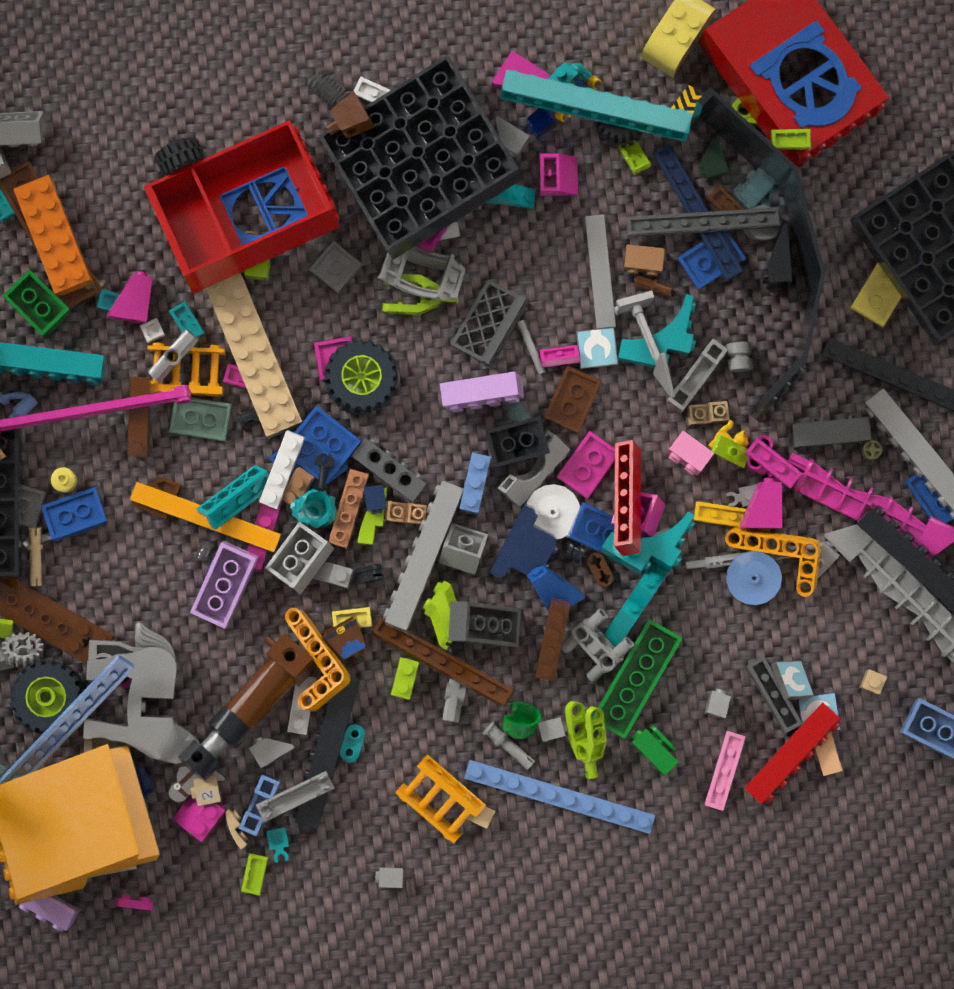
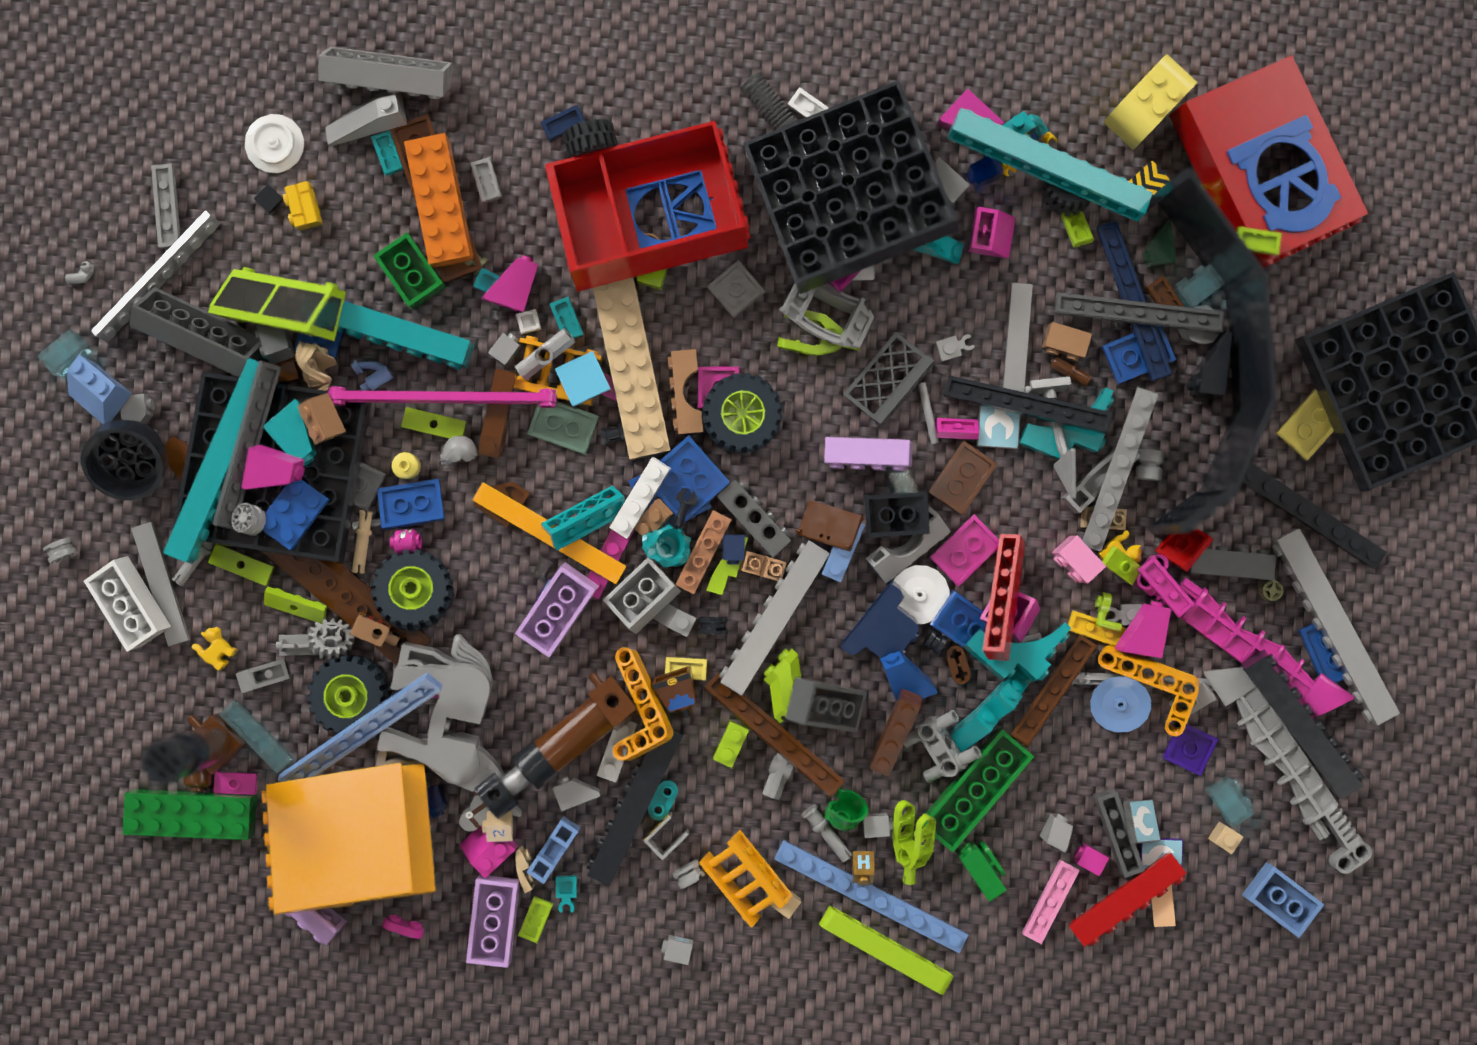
camera: 10 degrees right, 5 degrees up
(52, 630) = (365, 626): none -> medium nougat torso
(71, 438) = (422, 422): none -> lime tile
(75, 549) = (406, 539): none -> dark pink head
(89, 591) = (412, 590): none -> black wheel
(91, 210) = (486, 180): none -> light grey plate
(108, 455) = (458, 448): none -> light grey hair
(136, 358) = (505, 349): none -> light grey brick
(147, 149) = (560, 122): none -> dark blue tile
(211, 371) = (582, 379): none -> medium azure tile
(216, 880) = (493, 921): none -> lavender brick
(295, 796) = (591, 850): light grey piece -> none
(301, 345) = (684, 366): none -> medium nougat arch
(349, 117) = (780, 129): reddish brown torso -> none
(361, 792) = (663, 854): none -> light grey piece
(388, 807) = (688, 873): none -> light grey wheel
(463, 461) = (836, 525): none -> reddish brown door
(463, 548) = (817, 616): light grey slope -> none
(541, 285) = (951, 348): none -> light grey plate
(546, 769) = (863, 867): none -> pearl gold brick
(582, 843) = (886, 950): none -> lime beam
(617, 322) = (1028, 404): none -> black plate
(690, 576) = (1053, 691): none -> reddish brown tile
(710, 364) = (1119, 468): none -> light grey plate
(721, 491) = (1103, 605): none -> lime plate
(753, 724) = (1090, 858): none -> dark pink brick
(784, 423) = (1184, 548): none -> red tile
(826, 608) = (1190, 749): none -> dark purple tile
(871, 648) = (1230, 801): none -> clear light blue brick

